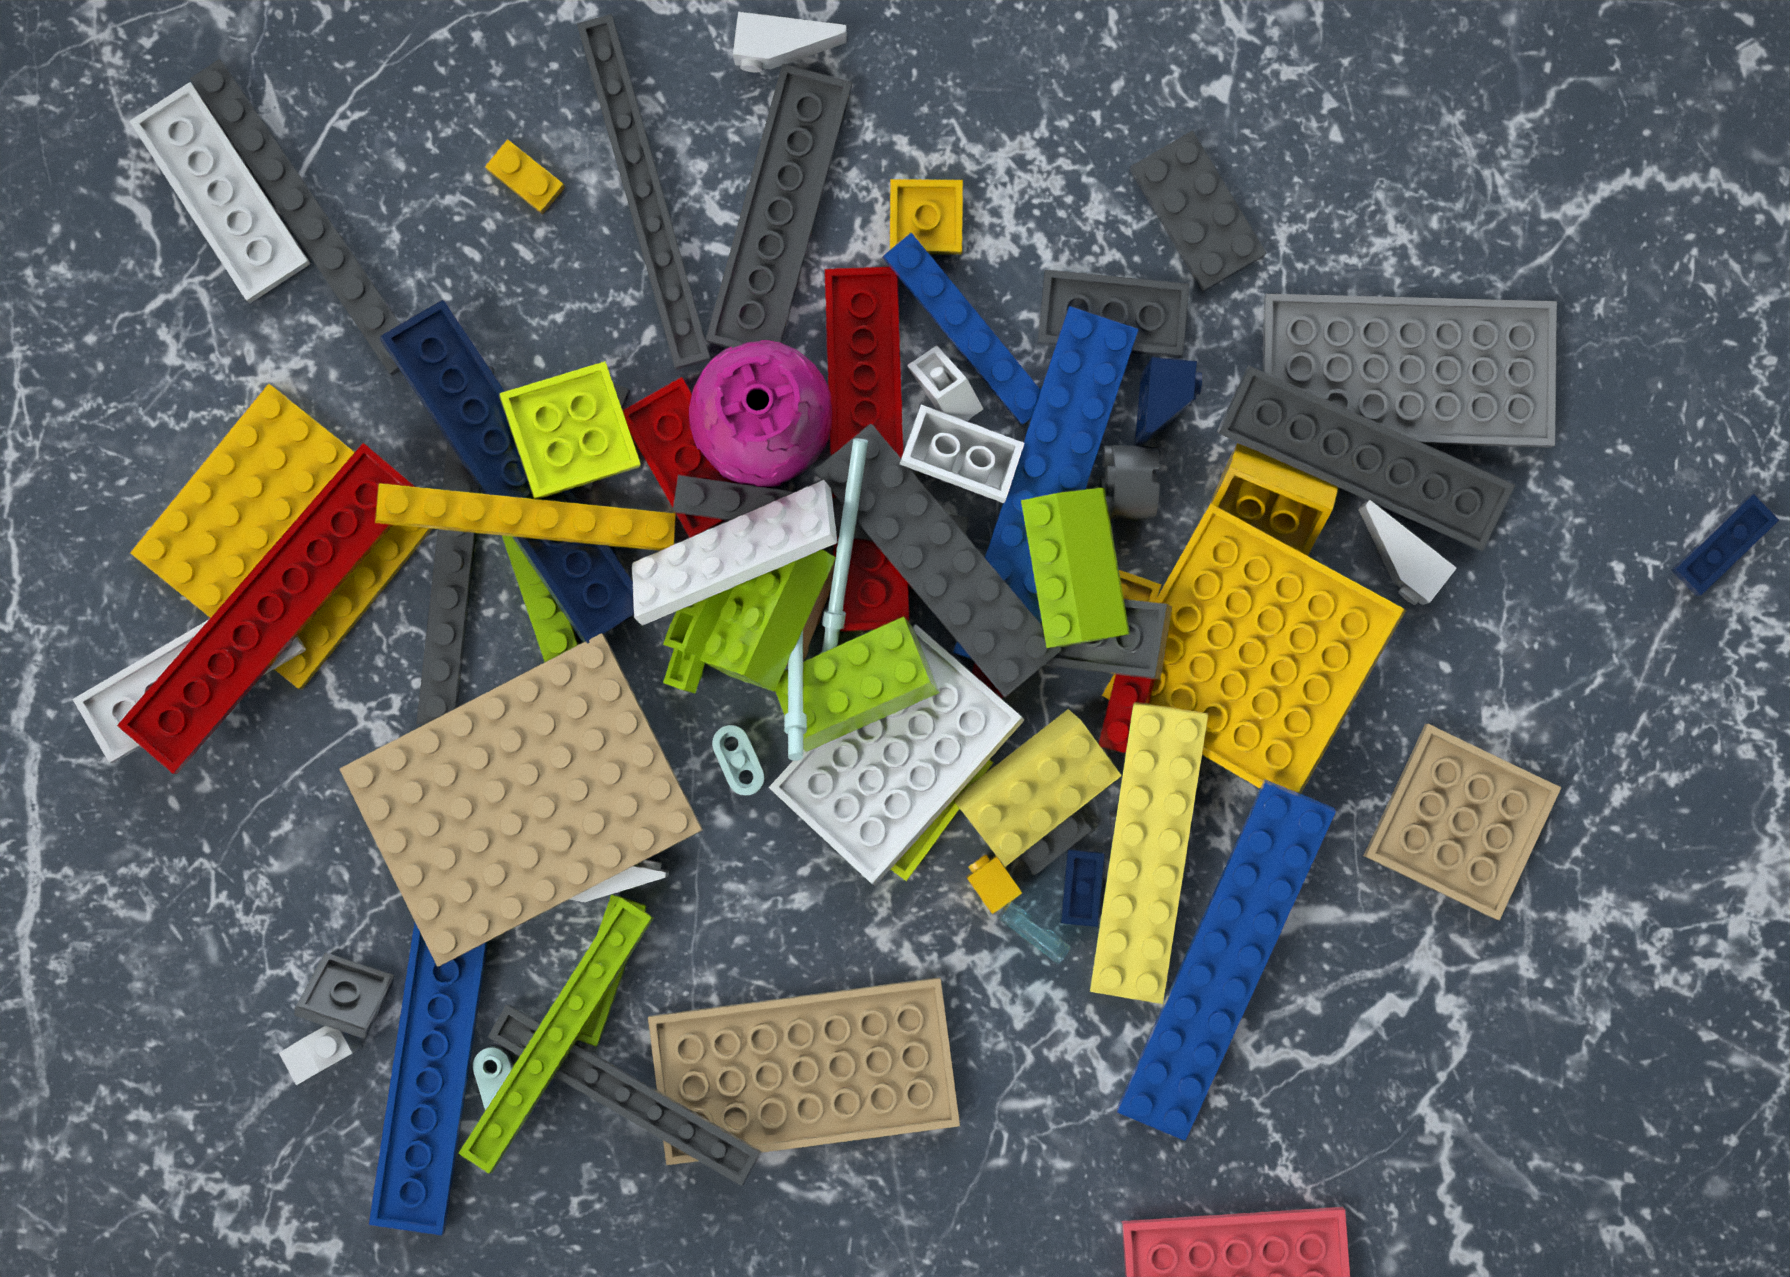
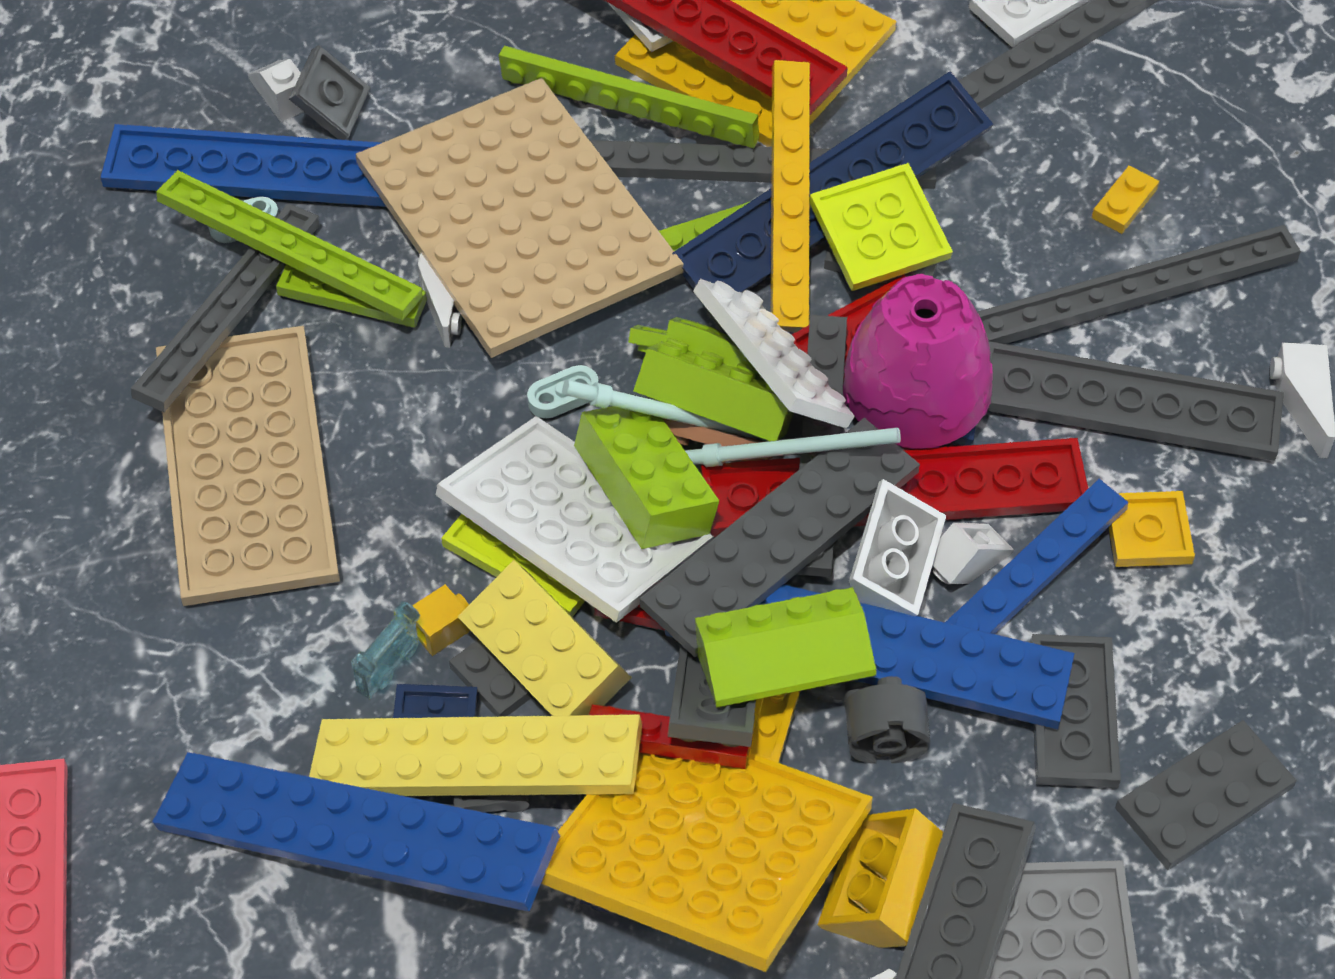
camera: 85 degrees right, 30 degrees down
(363, 692) = (631, 97): none -> lime plate
(1164, 394) = (981, 736): dark blue slope -> none

